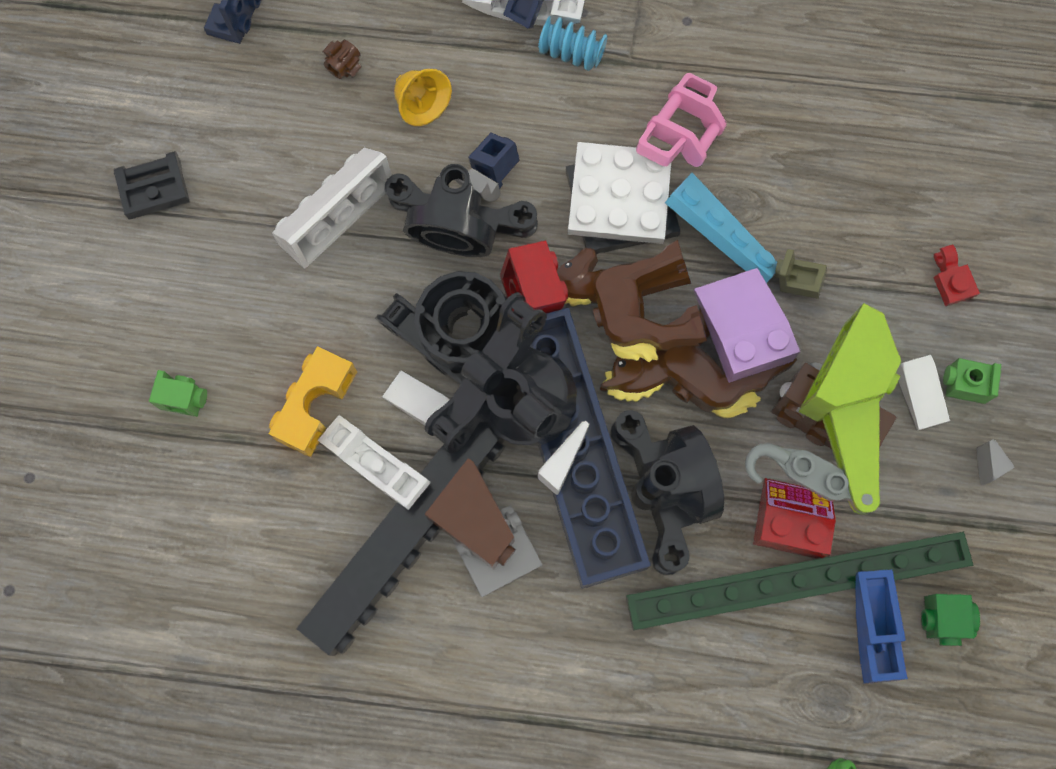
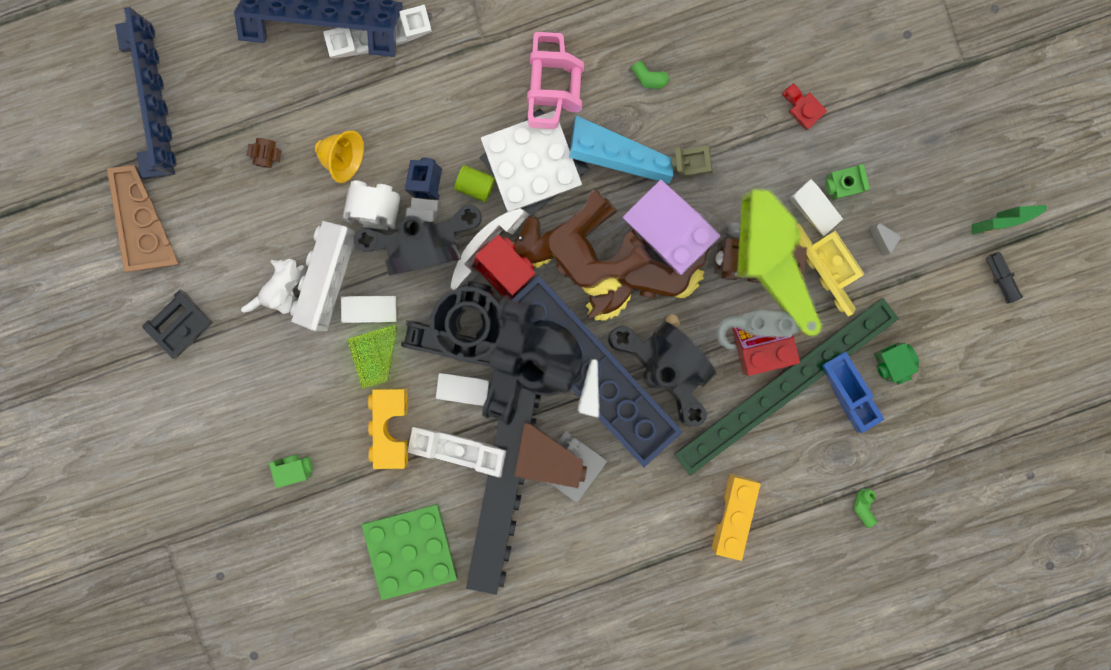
camera: 25 degrees left, 15 degrees up
(173, 71) = (139, 229): none -> medium nougat wing
(256, 557) = (409, 551): none -> bright green plate
(276, 199) = (278, 291): none -> white animal
(340, 314) = (373, 355): none -> clear neon green wing
(361, 265) = (368, 309): none -> white slope
(423, 154) = (372, 206): none -> white brick
(546, 188) = (474, 183): none -> lime piece
(564, 240) = (509, 222): none -> white slope
(571, 44) = (435, 53): medium azure piece -> none
(667, 710) = (740, 503): none -> yellow arch
(792, 173) = (648, 79): none -> bright green arm
(919, 465) = (834, 265): none -> light yellow bracket

